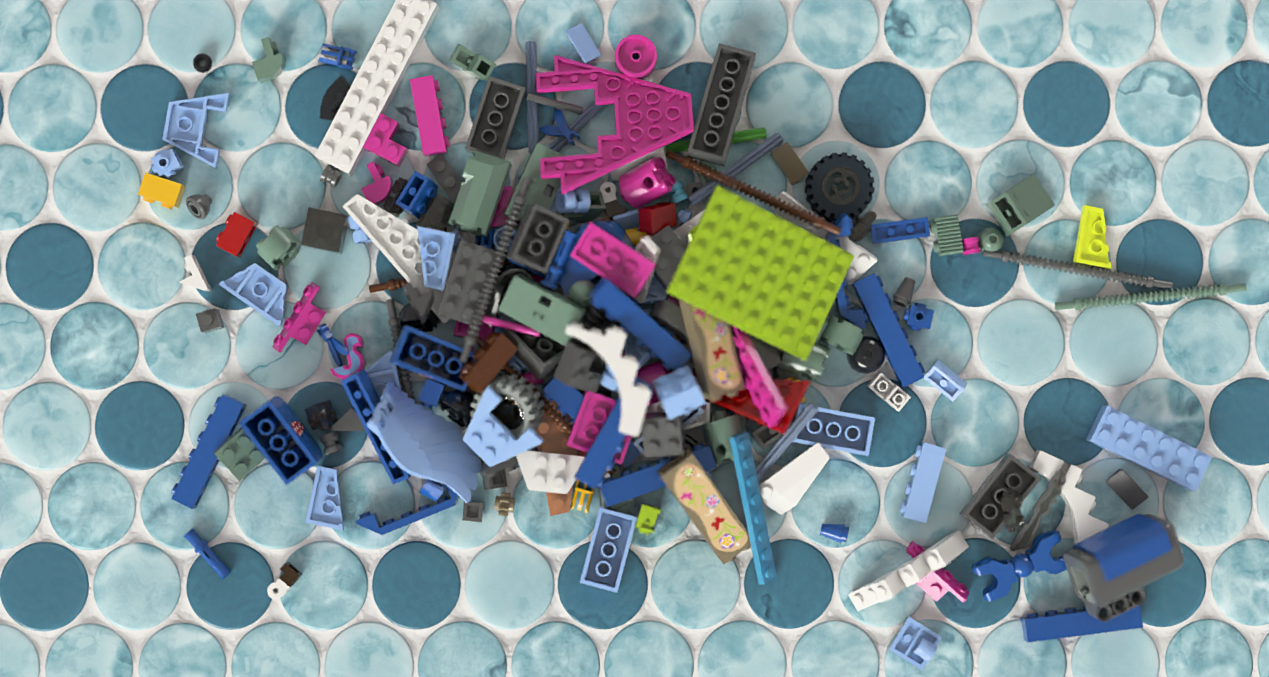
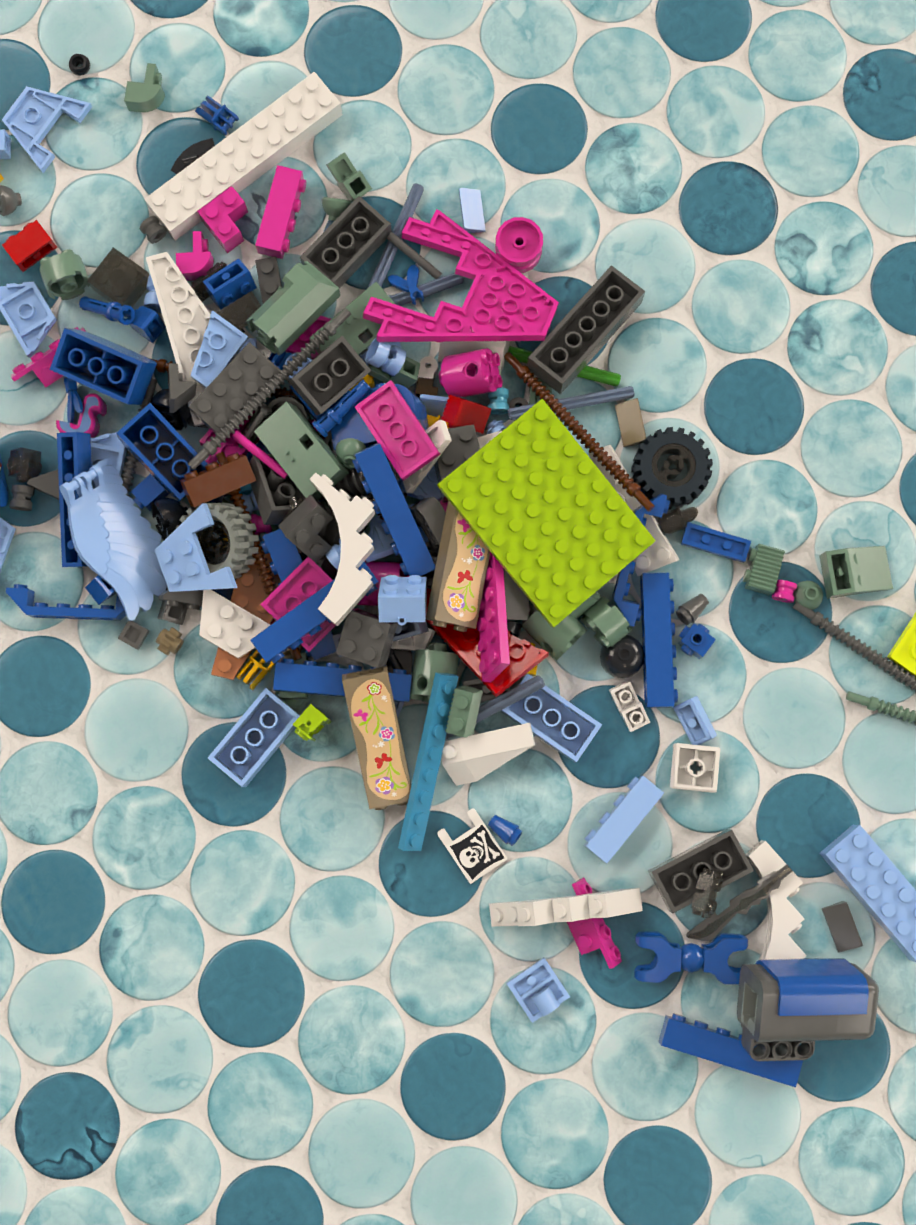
camera: 25 degrees right, 5 degrees down
(333, 260) = (111, 310): none -> blue pin
(351, 309) = (103, 366): none -> blue brick
(363, 256) = (147, 323): none -> blue slope
(471, 90) = (334, 207): none -> sand green brick
(557, 353) = (294, 503): none -> clear smoke hand
(764, 456) = (464, 711): none -> sand green brick
(818, 558) = (475, 850): none -> flag
(971, 424) = (705, 757): none -> white brick

